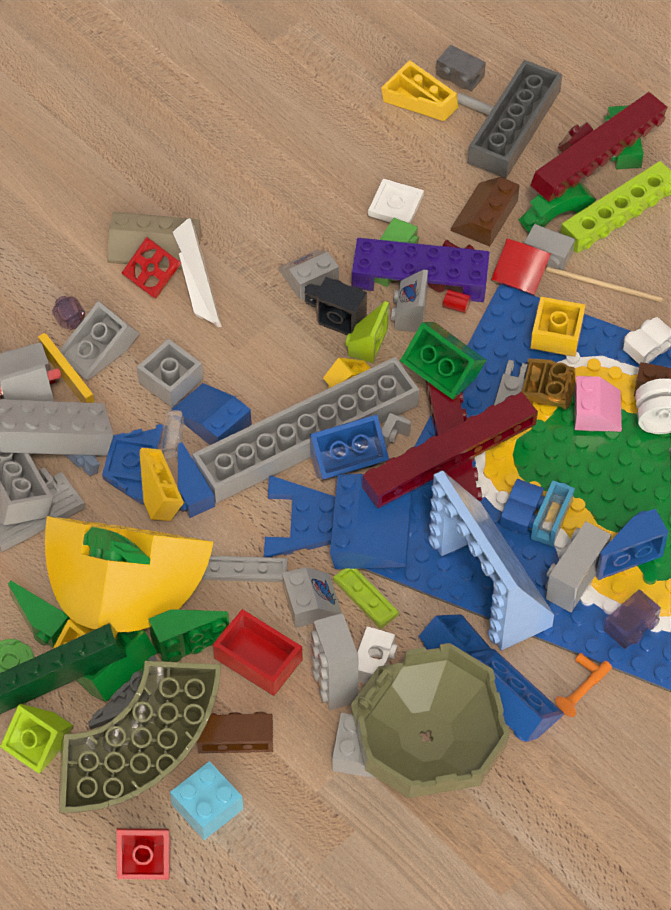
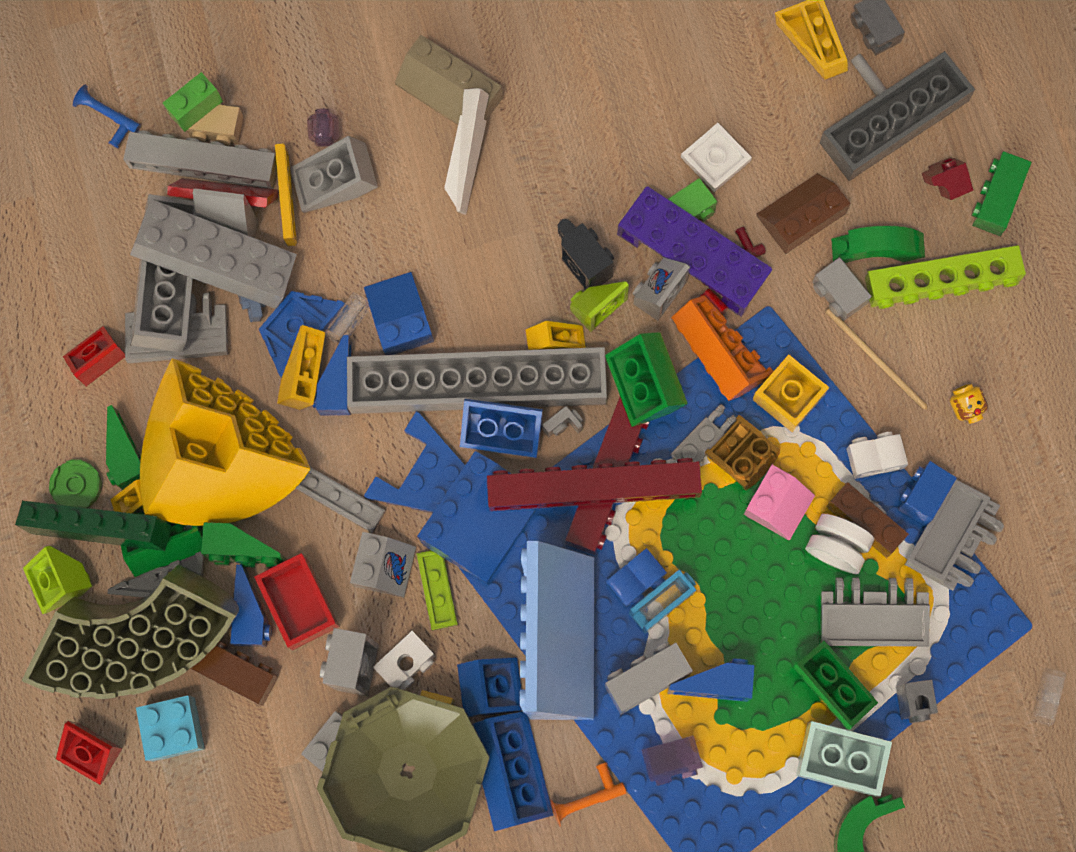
camera: 35 degrees right, 20 degrees up
(113, 546) = (200, 442): green slope -> none
(164, 277) = (413, 123): red piece -> none
(170, 373) = (380, 249): light grey brick -> none
(231, 693) = (251, 622): none -> blue slope
(309, 269) = (583, 197): light grey slope -> none
(483, 322) = (720, 348): none -> orange wedge
(520, 266) = (797, 300): red slope -> none
(598, 147) = (958, 202): dark red brick -> none

